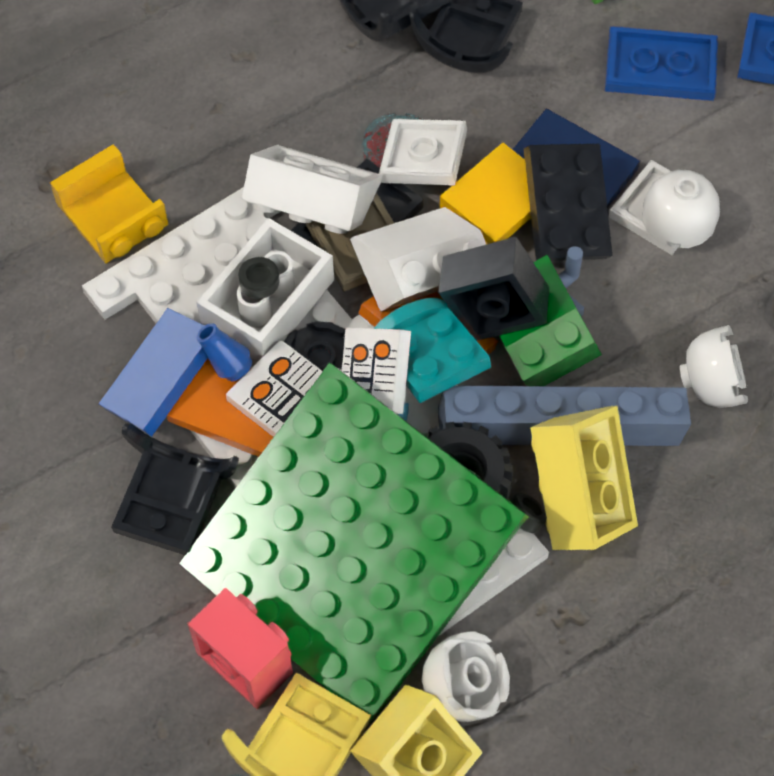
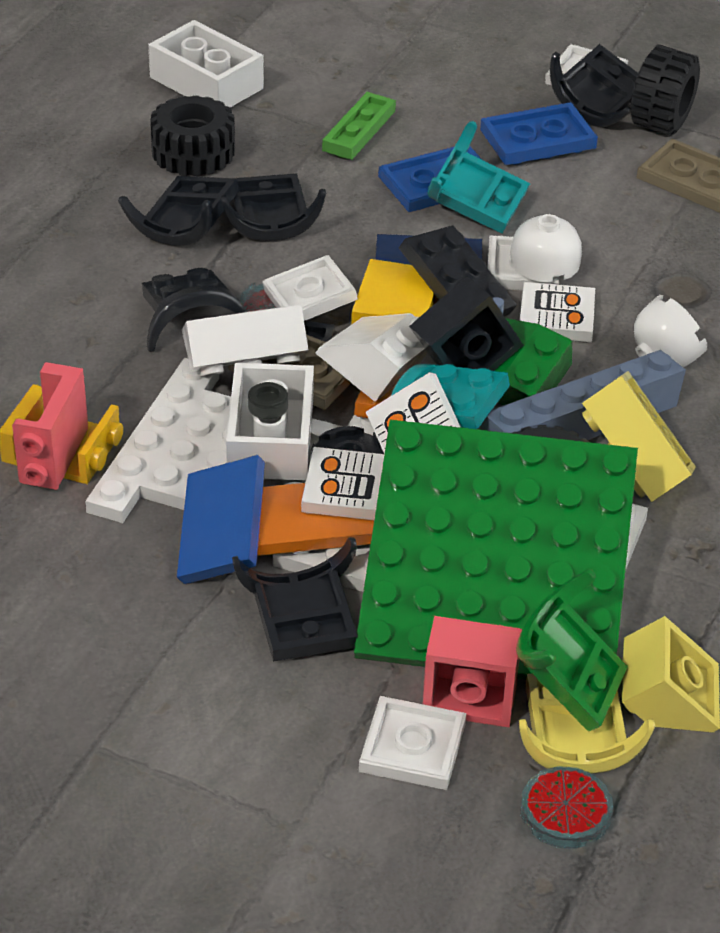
camera: 35 degrees left, 20 degrees down
(94, 205) = (49, 445): none -> coral panel
(163, 680) = (412, 742): none -> white tile
(226, 355) = (281, 471): blue cone -> none
(314, 692) = (571, 656): none -> green piece
(322, 102) = (180, 293): none -> black piece
(467, 676) = (655, 597): white cylinder -> none
(648, 280) = (560, 309): none -> white tile
(676, 99) = (477, 186): none -> teal piece

